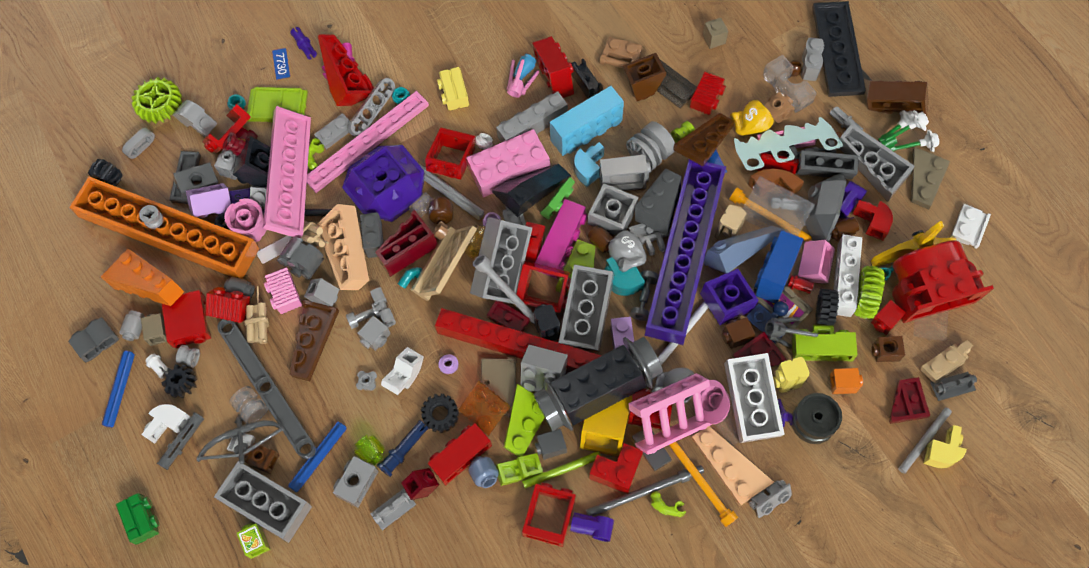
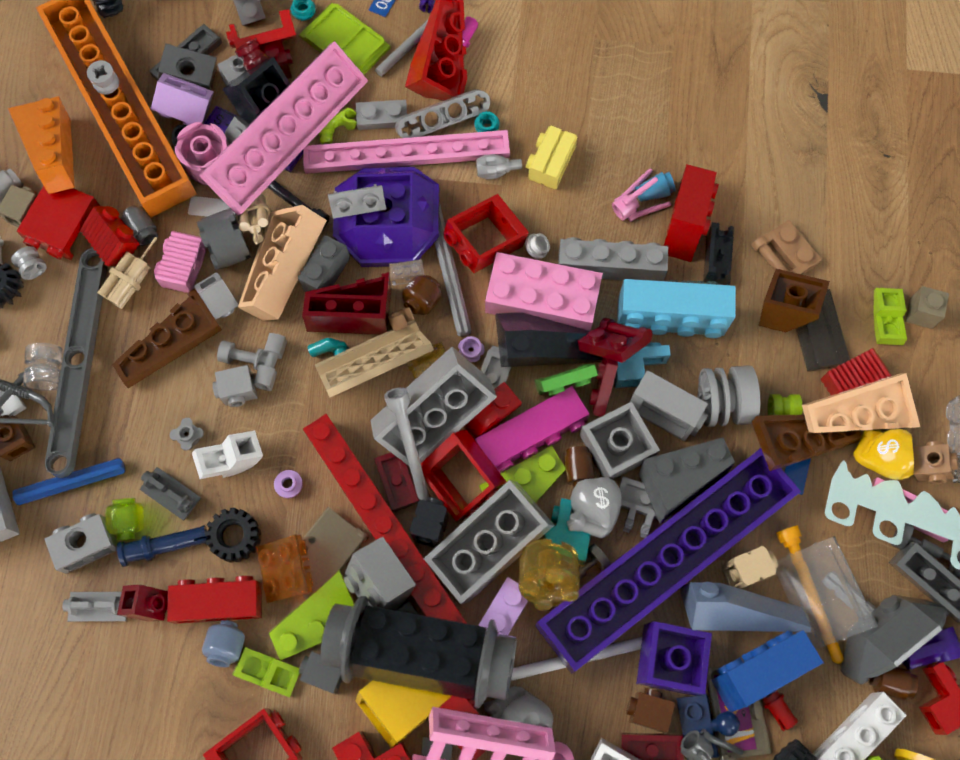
camera: 35 degrees right, 5 degrees up
(317, 84) = (402, 50): none -> light grey bar
(366, 181) = (357, 201): none -> light grey hinge
(383, 419) = (169, 492): none -> dark grey hinge
(425, 114) = (494, 166): none -> light grey piece
(560, 470) = (313, 711): lime bar -> none
(569, 159) = (612, 346): none -> dark red plate
(581, 185) = (600, 396): none -> dark red wing
(632, 297) = (549, 573): none -> clear yellow brick
(699, 51) = (888, 316): none -> lime slope
(724, 103) = (867, 407): none -> light nougat wing
(771, 163) = (863, 531): red plate -> none
(780, 177) = (866, 563): dark orange brick -> none
(816, 261) = (823, 696): bright pink brick -> none

